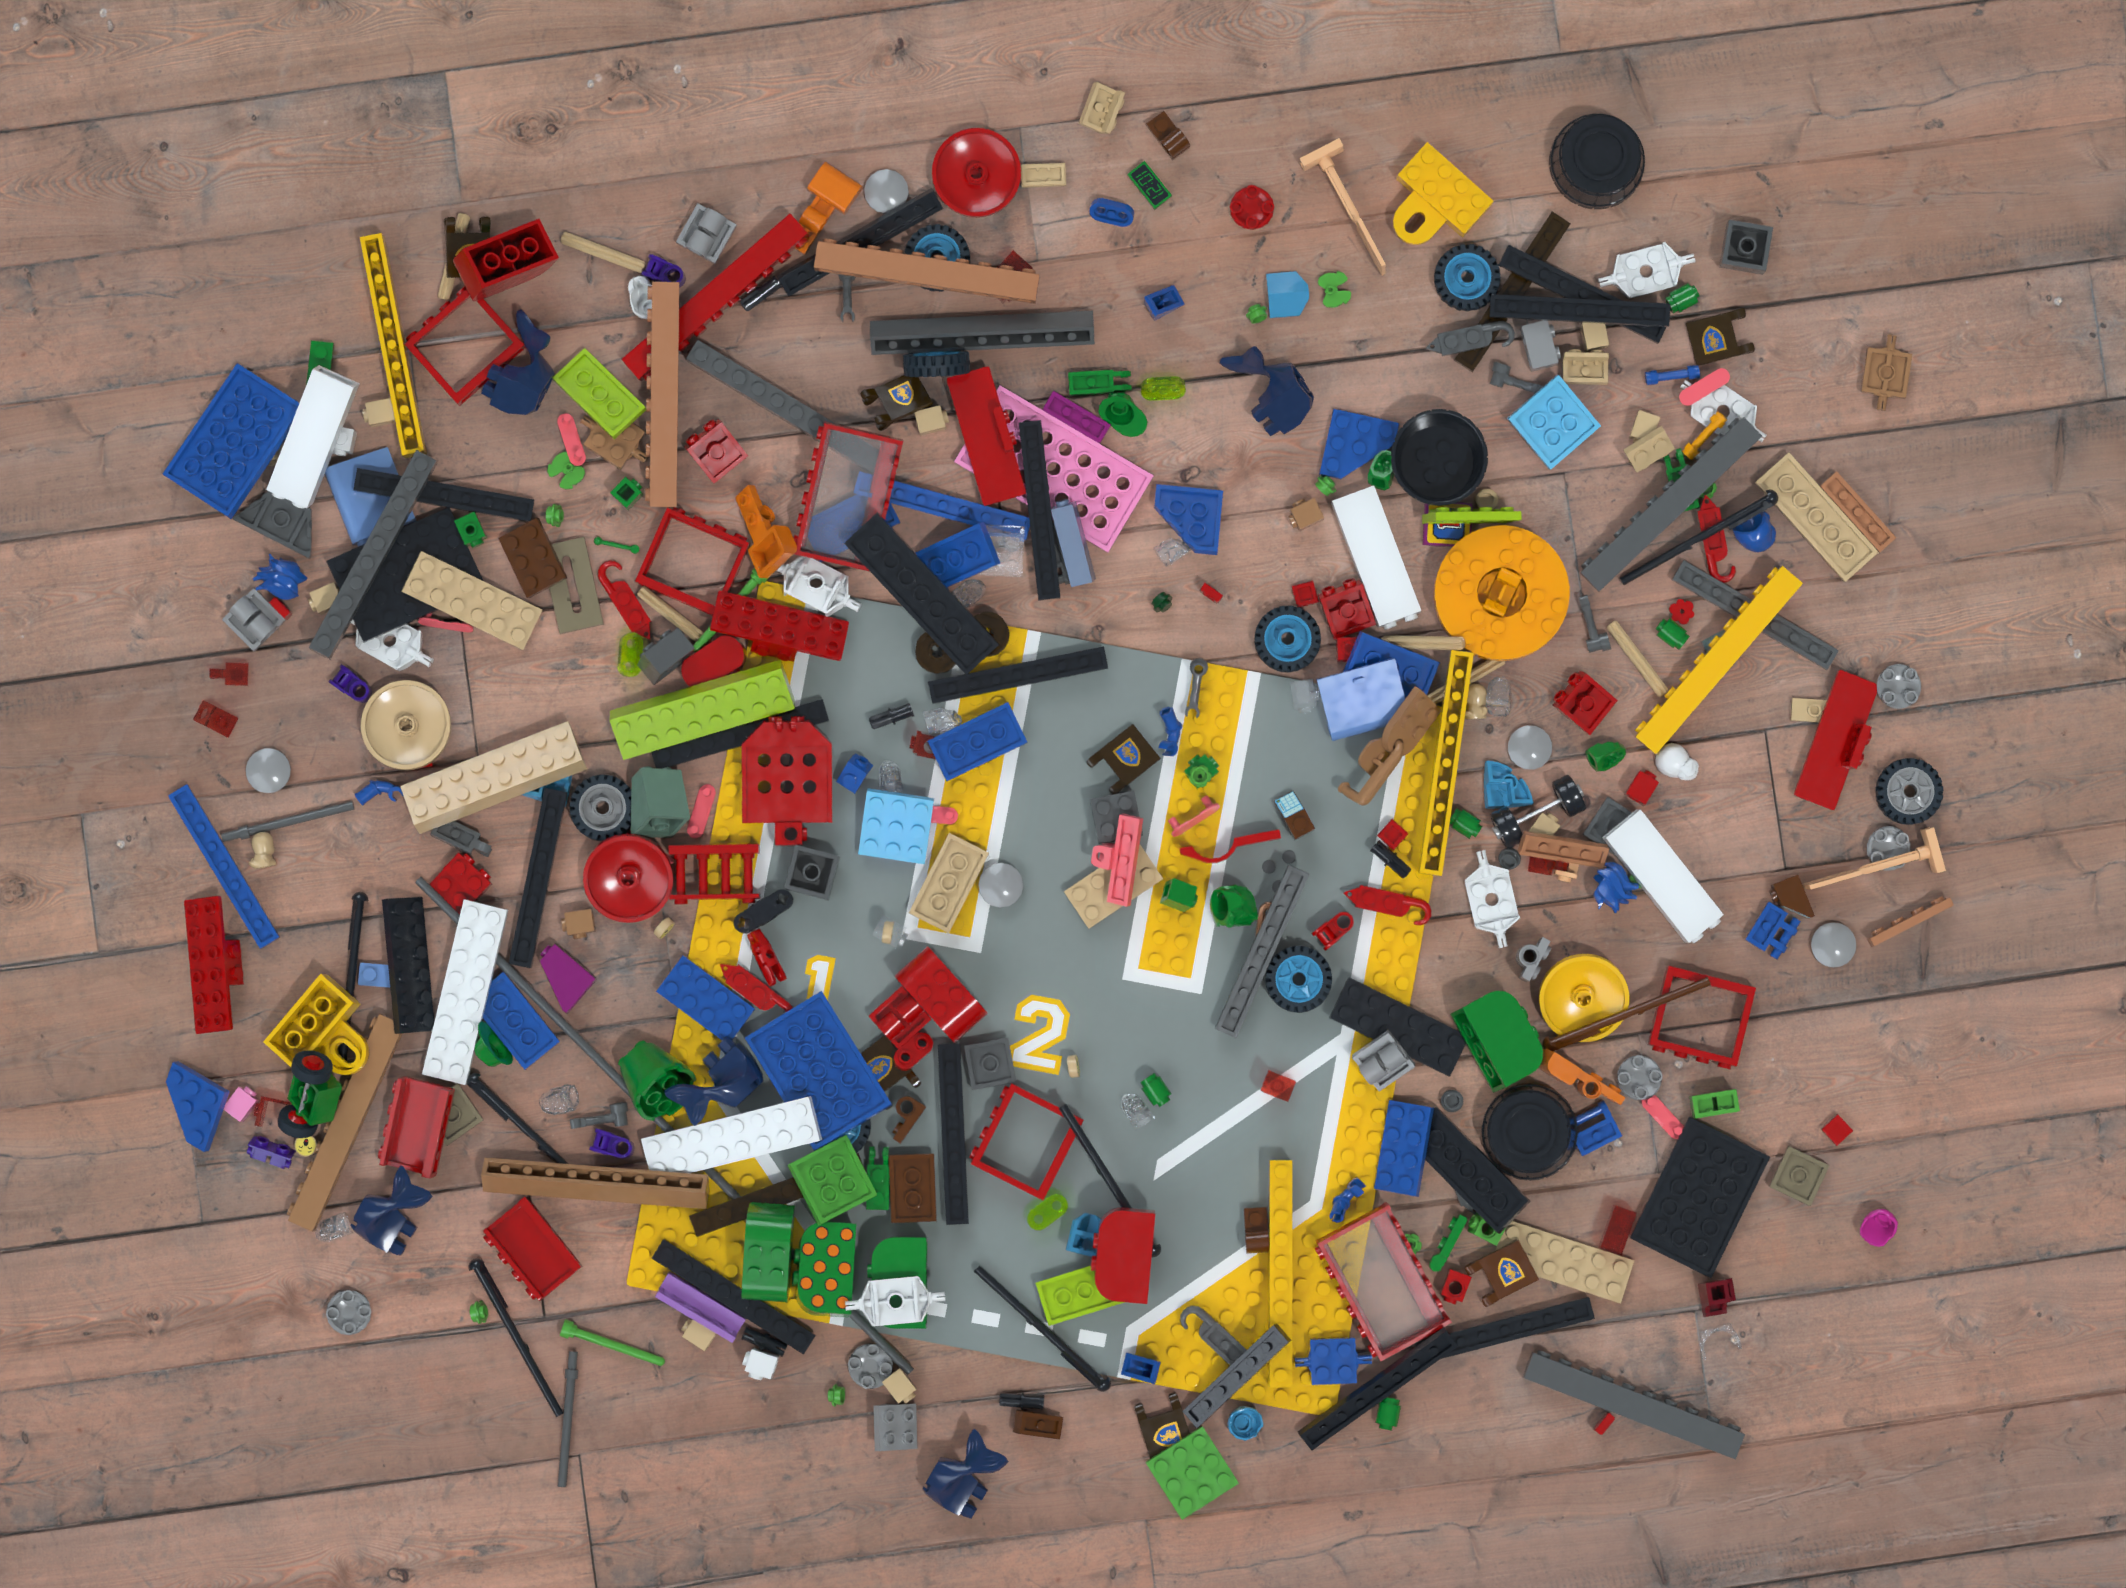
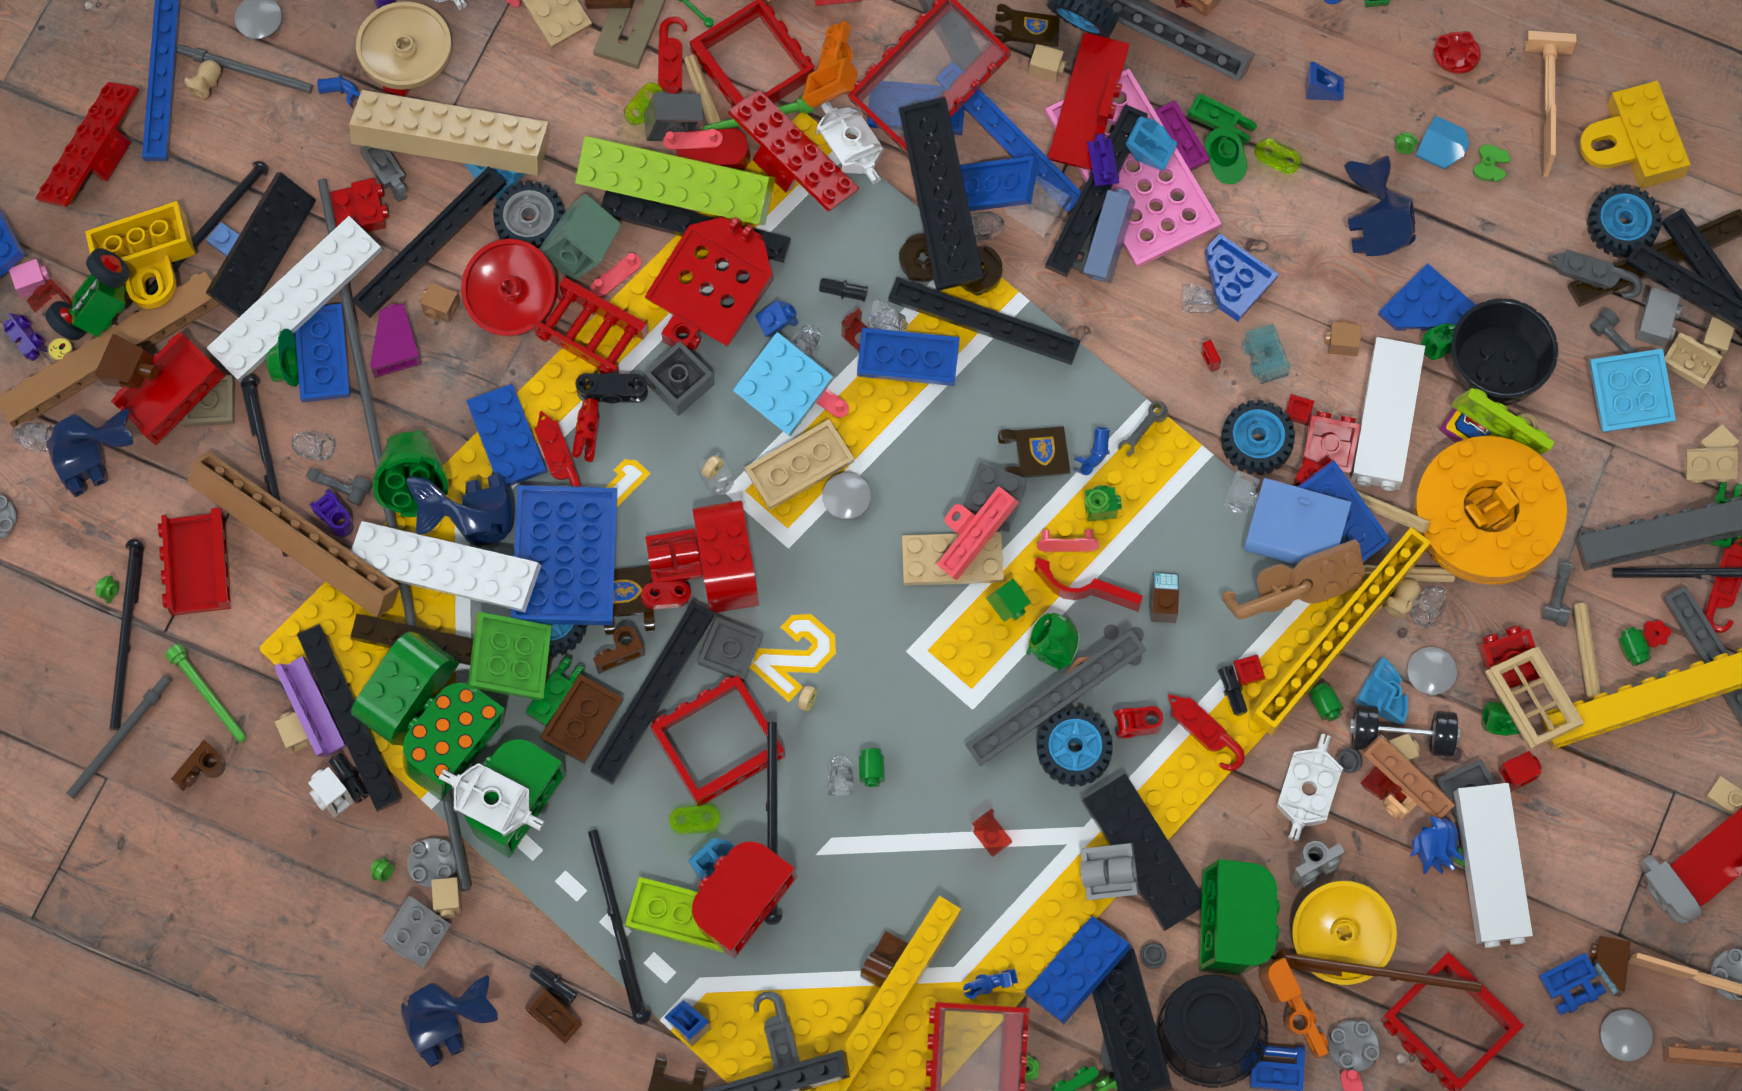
camera: 30 degrees right, 15 degrees down
(374, 1131) = (125, 364): none -> reddish brown torso
(641, 1415) = (196, 763): none -> reddish brown plate
(664, 928) = (512, 352): tan tile -> none
(693, 665) = (692, 140): none -> coral piece
(1032, 486) = (1103, 161): none -> dark purple hinge
(1058, 442) = (1151, 143): none -> dark azure slope
(1162, 602) = (1159, 337): dark green plate -> none
(1248, 553) = (1267, 341): none -> clear light blue brick
(1325, 485) = (1379, 324): bright green plate -> none
(1611, 745) = (1513, 707): none -> tan piece
(1675, 762) = (1568, 768): white hair -> none
(1804, 815) = (1669, 891): none -> light grey piece

